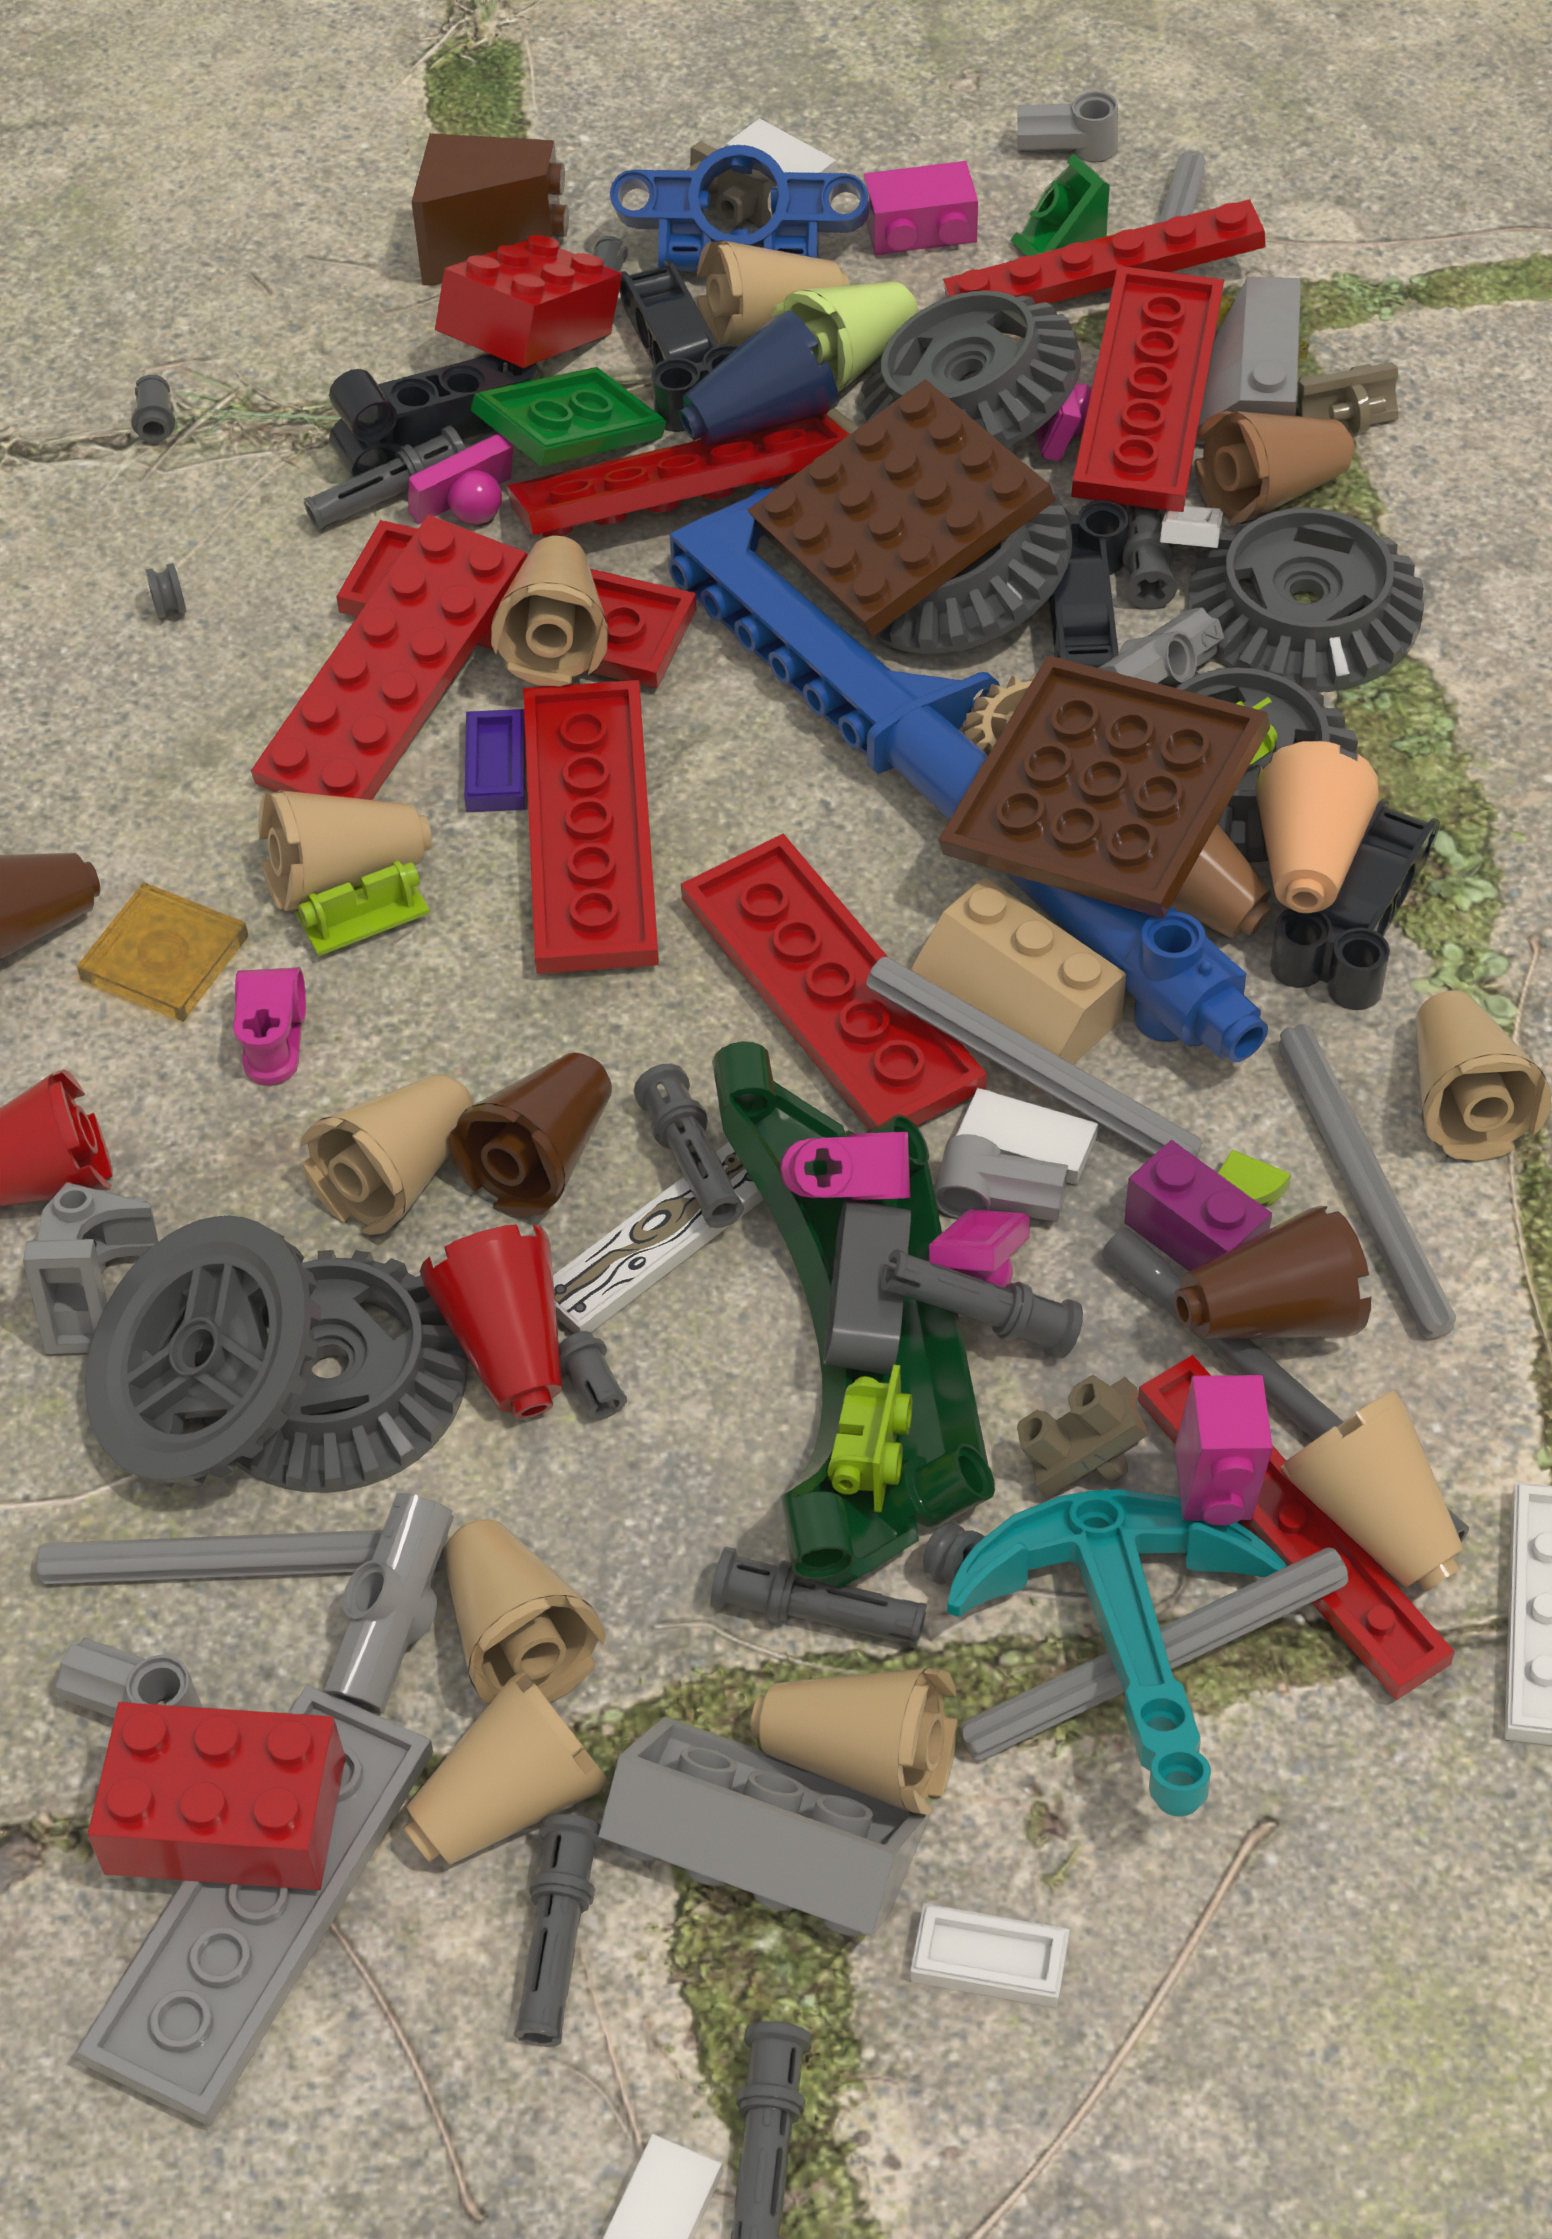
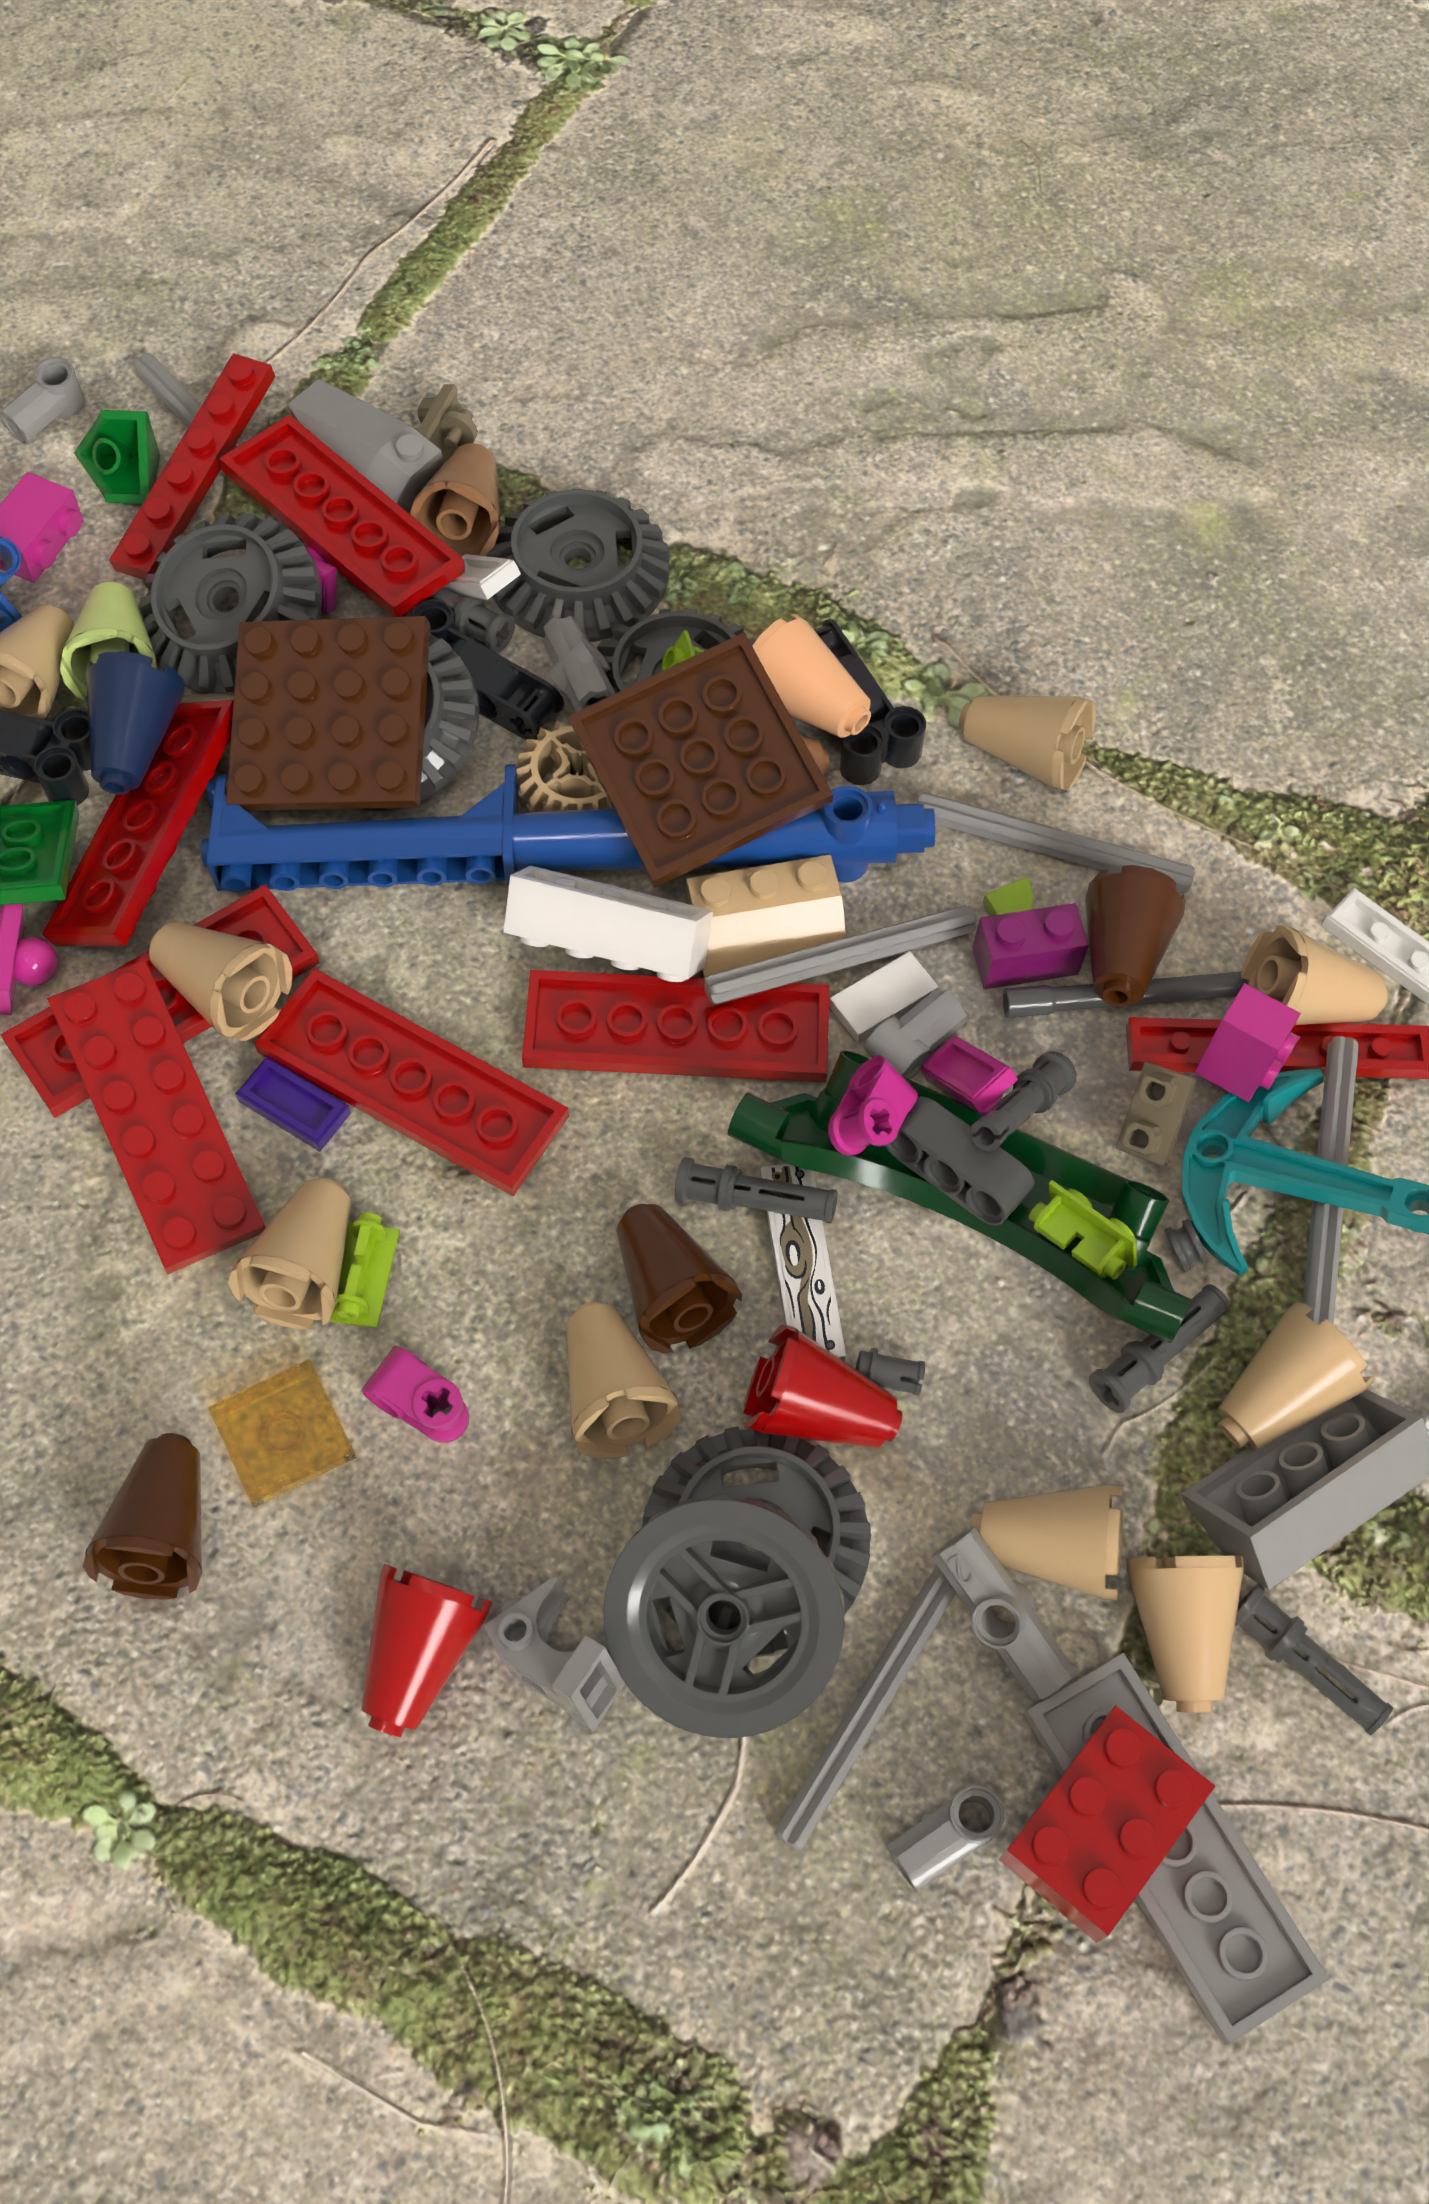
camera: 60 degrees left, 10 degrees up
(880, 851) = (608, 923): none -> white brick

